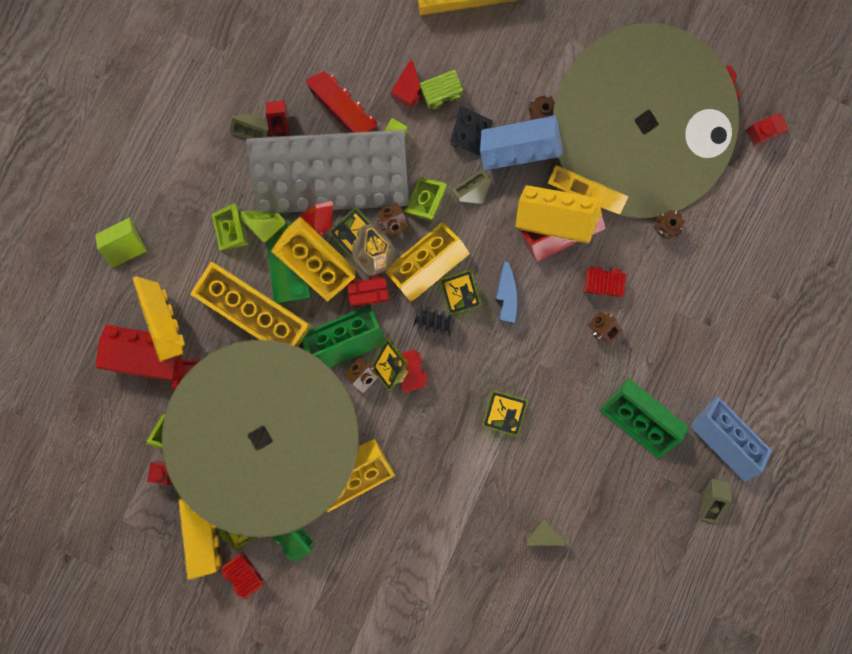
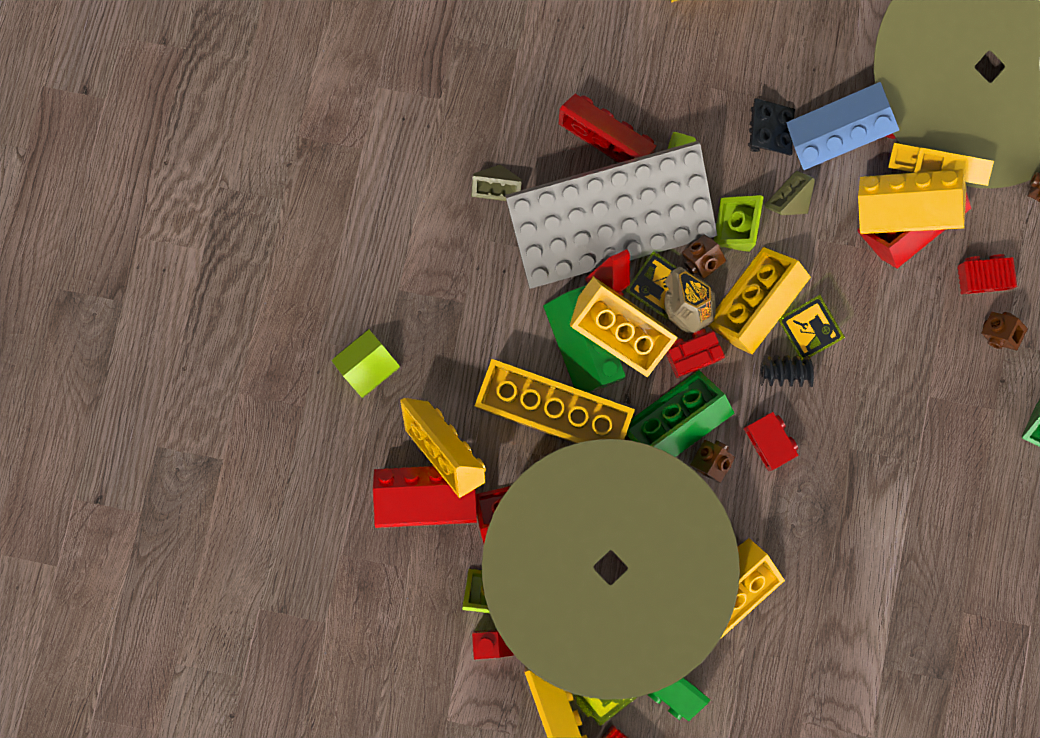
camera: 10 degrees left, 5 degrees down
(229, 228) = (500, 313): lime slope -> none
(263, 223) = (544, 298): lime slope -> none
(277, 119) = (529, 164): red slope -> none
(390, 365) = (748, 438): piece -> none
(407, 87) = (681, 90): red slope -> none
(441, 89) = (723, 84): lime brick -> none
(505, 413) = (906, 467): piece -> none
(507, 294) = (869, 317): medium blue slope -> none
(541, 107) = (854, 79): reddish brown brick -> none
(544, 535) = (996, 613): olive slope -> none

